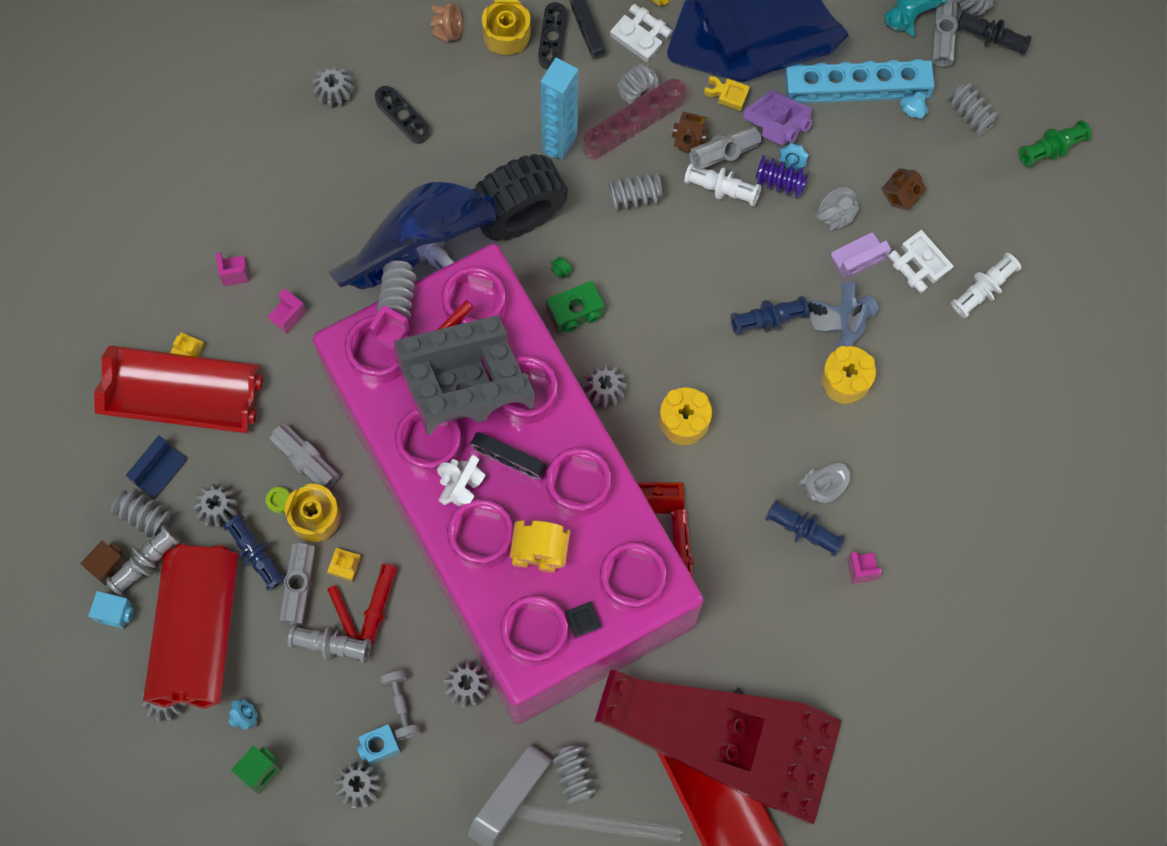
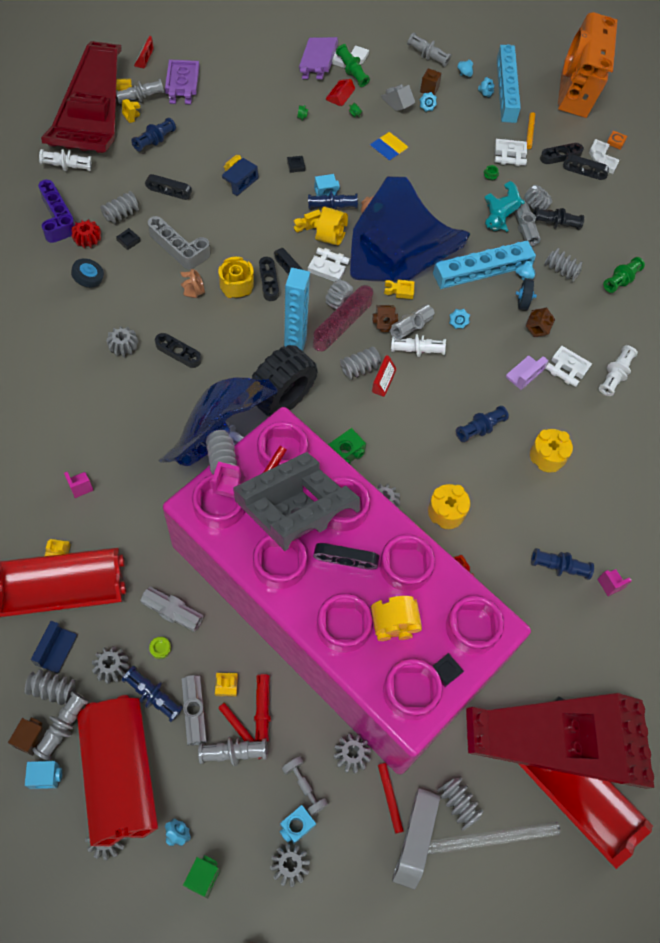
camera: 20 degrees left, 10 degrees down
(287, 312) = (130, 503): dark pink panel -> none
(307, 500) = (181, 643): yellow brick -> none
(455, 477) = (313, 582): white hips -> none
(496, 743) = (390, 797): none -> red bar
(560, 267) = (324, 426): green plate -> none
(662, 217) = (384, 377): none -> slope
(779, 116) = (444, 295): medium lavender plate -> none
(781, 177) = (457, 333): dark purple piece -> none
(826, 483) = (564, 527): light grey hat -> none
(838, 208) = (500, 345): light grey hat -> none
(847, 317) = (537, 412): sand blue animal -> none
(898, 142) = (525, 294): none -> black wheel

